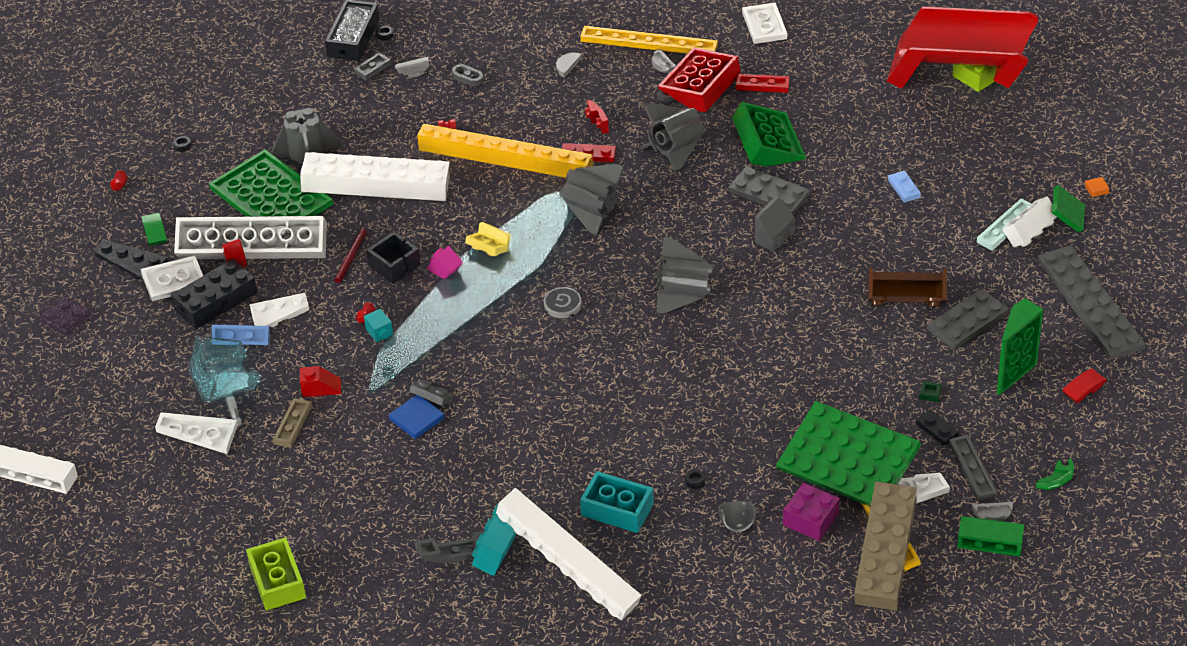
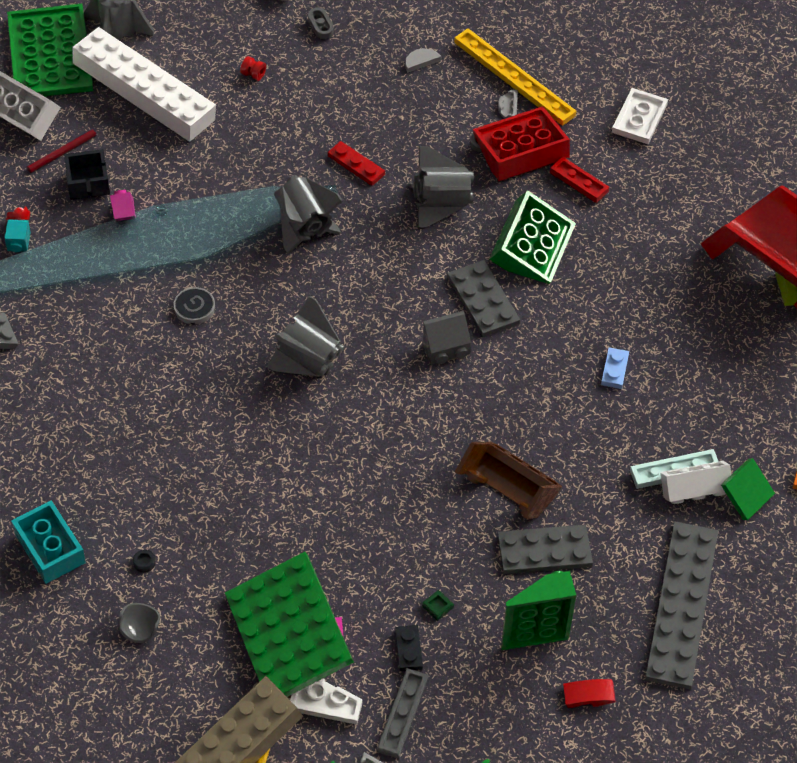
camera: 30 degrees right, 10 degrees up
(489, 240) = (180, 205): light yellow bracket -> none
(500, 151) = (279, 122): yellow brick -> none
(597, 116) = (393, 135): red slope -> none
(811, 511) = (208, 663): magenta brick -> none

